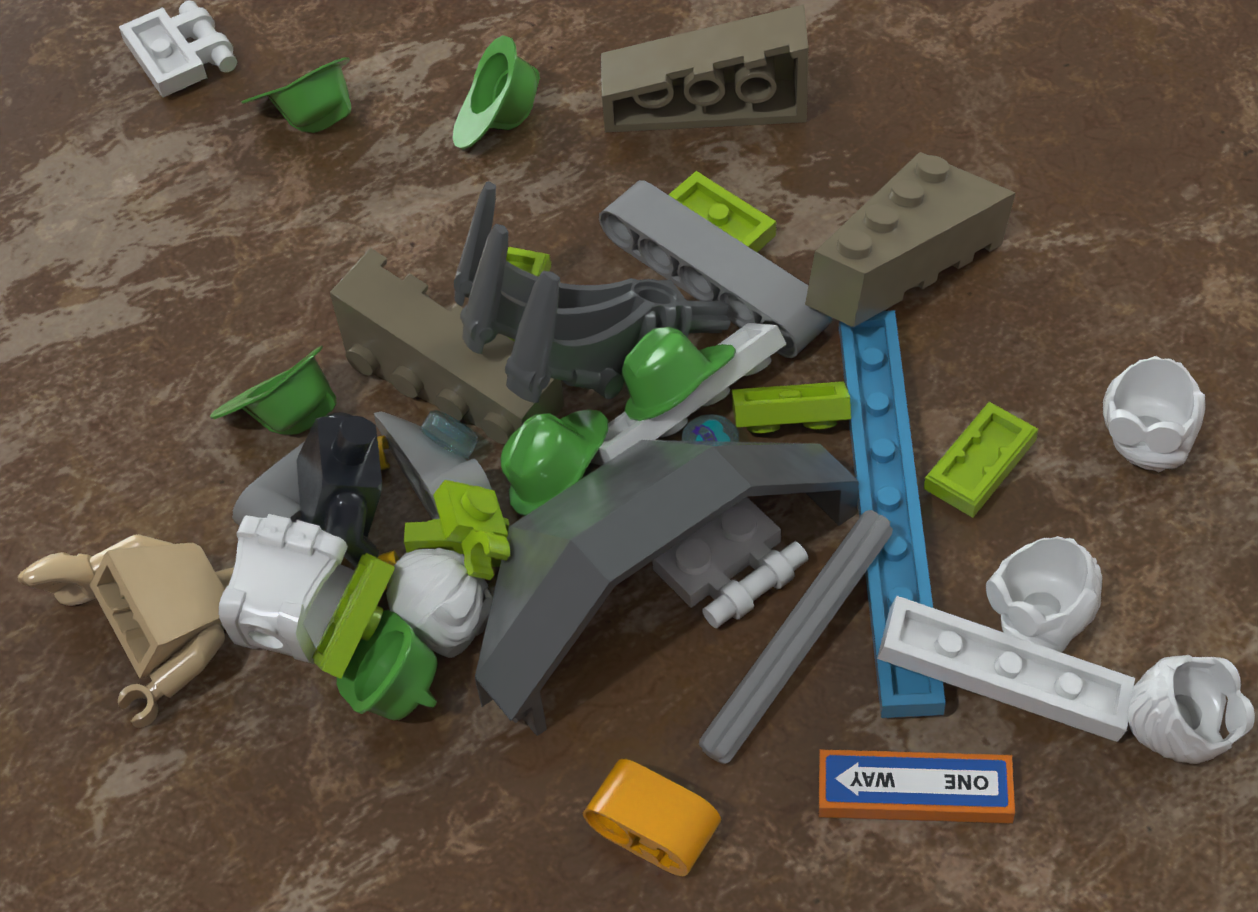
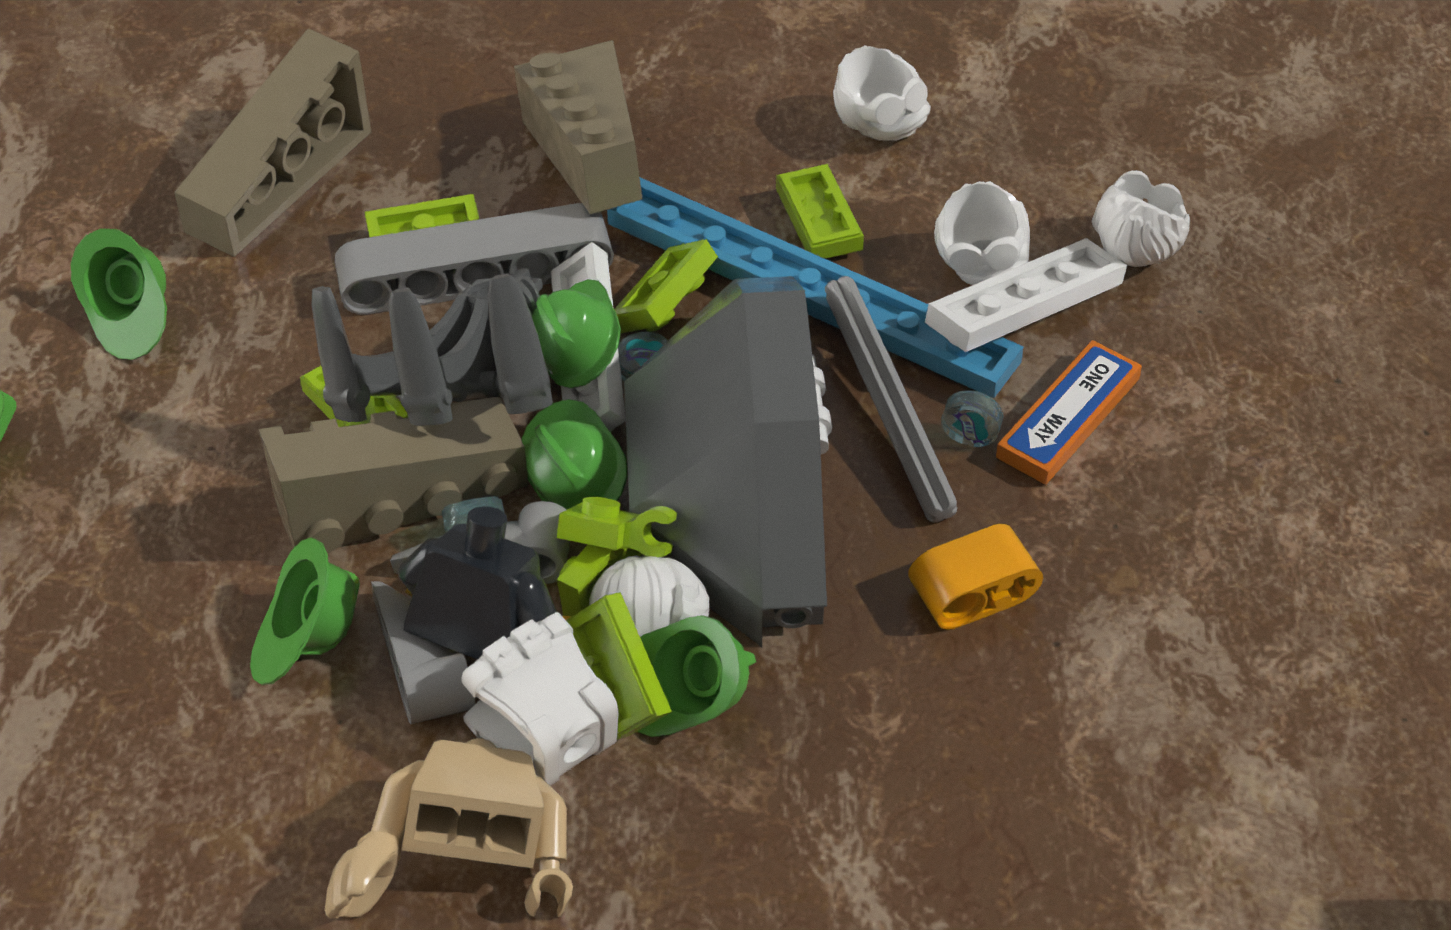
camera: 60 degrees left, 5 degrees down
(830, 712) = (972, 418): none -> clear light blue tile

